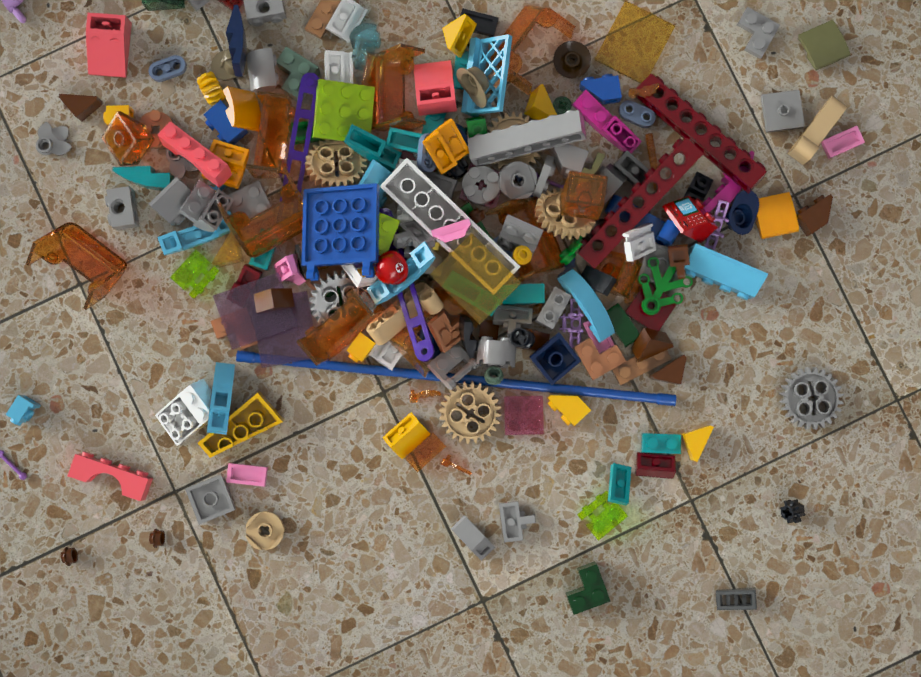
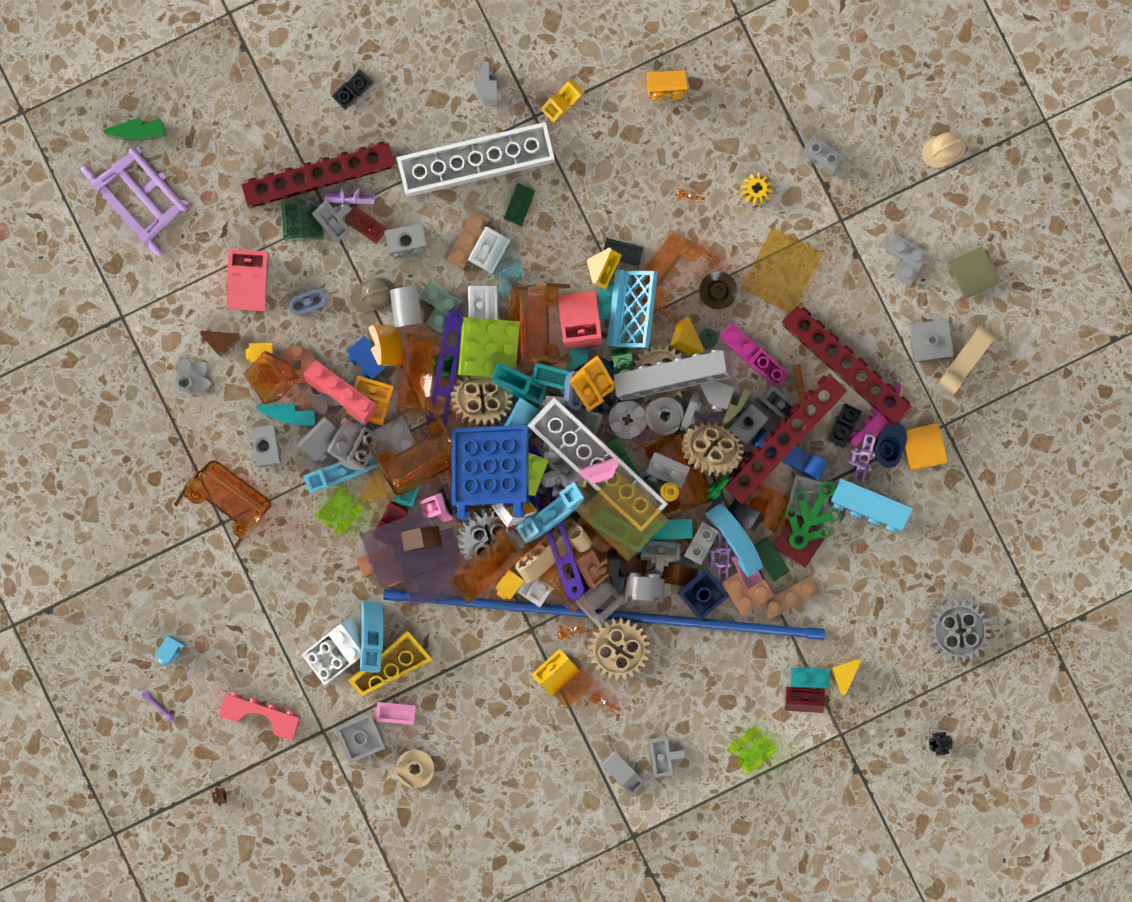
camera: 10 degrees left, 0 degrees up
(157, 538) = (307, 777): reddish brown plate -> none
(211, 88) = (353, 323): yellow gear -> none
(237, 41) = (380, 275): dark blue slope -> none
(391, 268) = (541, 507): red helmet -> none
(474, 83) = (621, 319): dark tan piece -> none
(476, 215) = (623, 451): reddish brown plate -> none
(496, 371) = (642, 606): sand green plate -> none
(518, 337) = (665, 574): black wheel -> none
(523, 415) = (672, 650): clear pink plate -> none
(570, 407) = (719, 642): yellow slope -> none
(583, 195) = (729, 432): clear orange slope -> none
(593, 591) = (741, 827): dark green brick -> none
(604, 89) = (749, 321): blue slope -> none
(619, 484) = (768, 718): teal plate -> none
(636, 116) = (783, 346): sand blue plate -> none
(639, 242) = (785, 477): white plate -> none
(645, 91) = (791, 324): clear orange piece -> none
(650, 343) = (799, 577): reddish brown slope -> none
(672, 372) = (820, 606): reddish brown slope -> none
(679, 257) = (826, 493): reddish brown plate -> none
(691, 218) = (836, 453): red slope -> none
(736, 606) = (902, 827): dark grey slope -> none
(816, 216) = (965, 447): reddish brown slope -> none
(842, 142) = (992, 371): bright pink tile -> none

